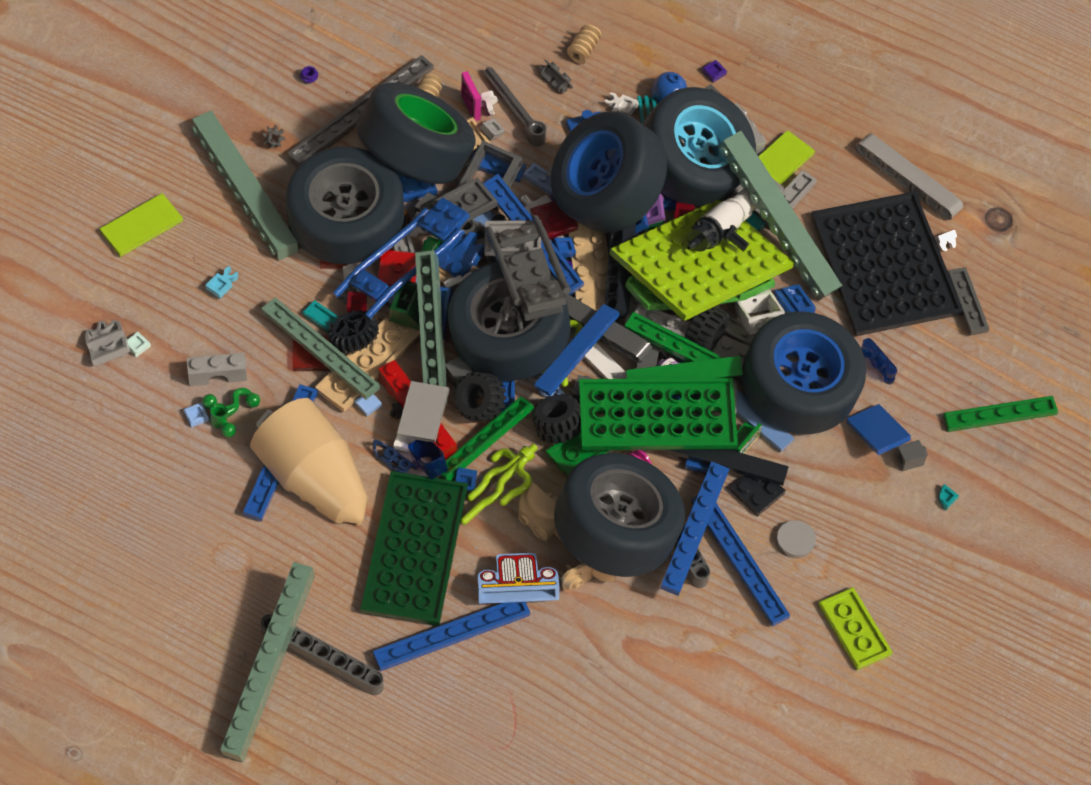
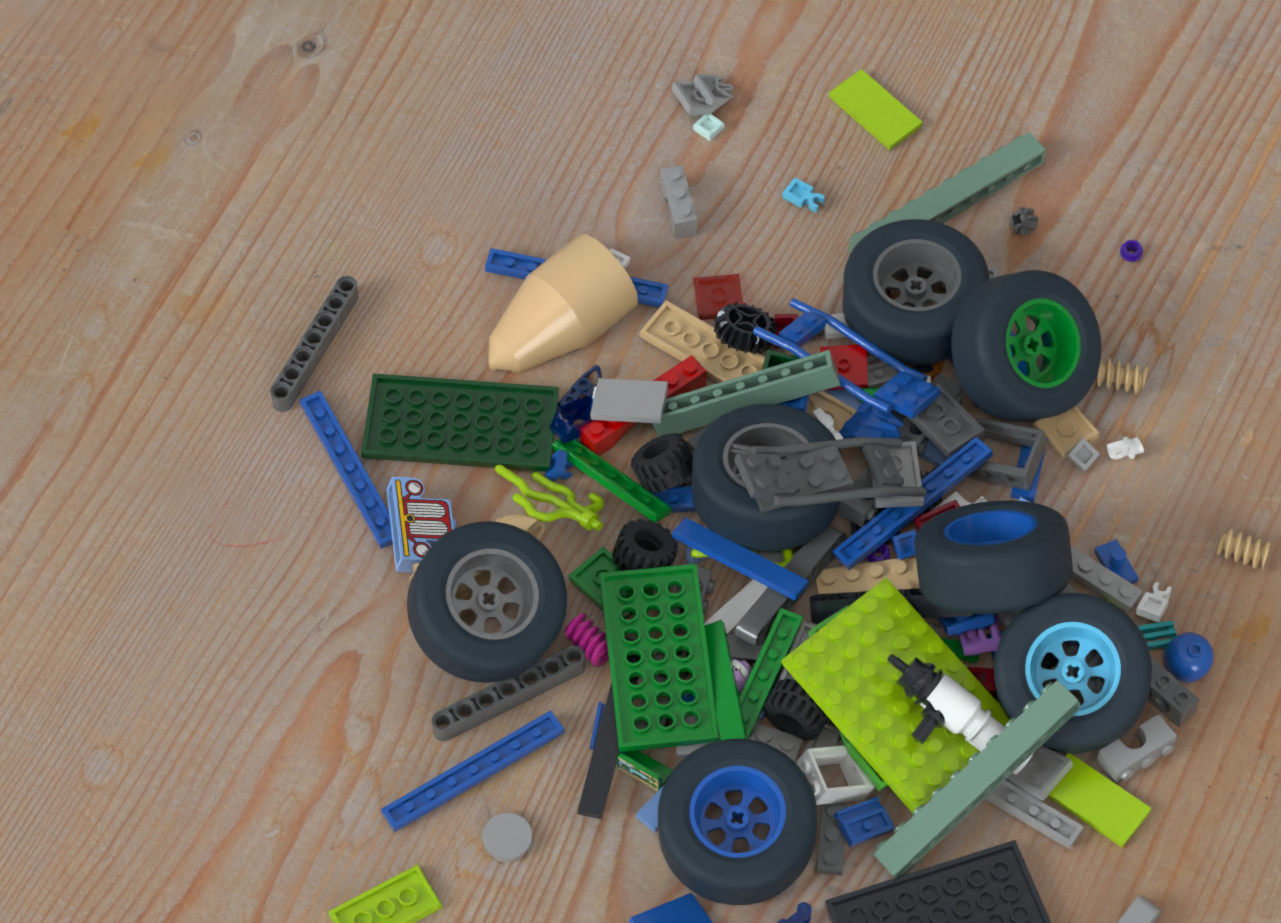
camera: 90 degrees right, 0 degrees up
(196, 415) = (620, 193): light blue tile -> none
(210, 402) = (633, 201): green piece -> none
(268, 662) = (294, 284): sand green brick -> none
(319, 315) = (774, 298): teal tile -> none
(320, 348) = (716, 297): sand green plate -> none
(347, 120) = (1110, 327): flat silver plate -> none
(368, 406) = (654, 359): light blue tile -> none
(470, 96) = (1123, 420): dark pink tile -> none
(535, 129) = (1095, 499): flat silver piece -> none
(551, 71) = (1191, 519): dark grey hinge -> none
(694, 529) = (501, 709): blue plate -> none
(714, 71) = (1238, 715): dark purple tile -> none
(757, 493) = (566, 789): black plate -> none

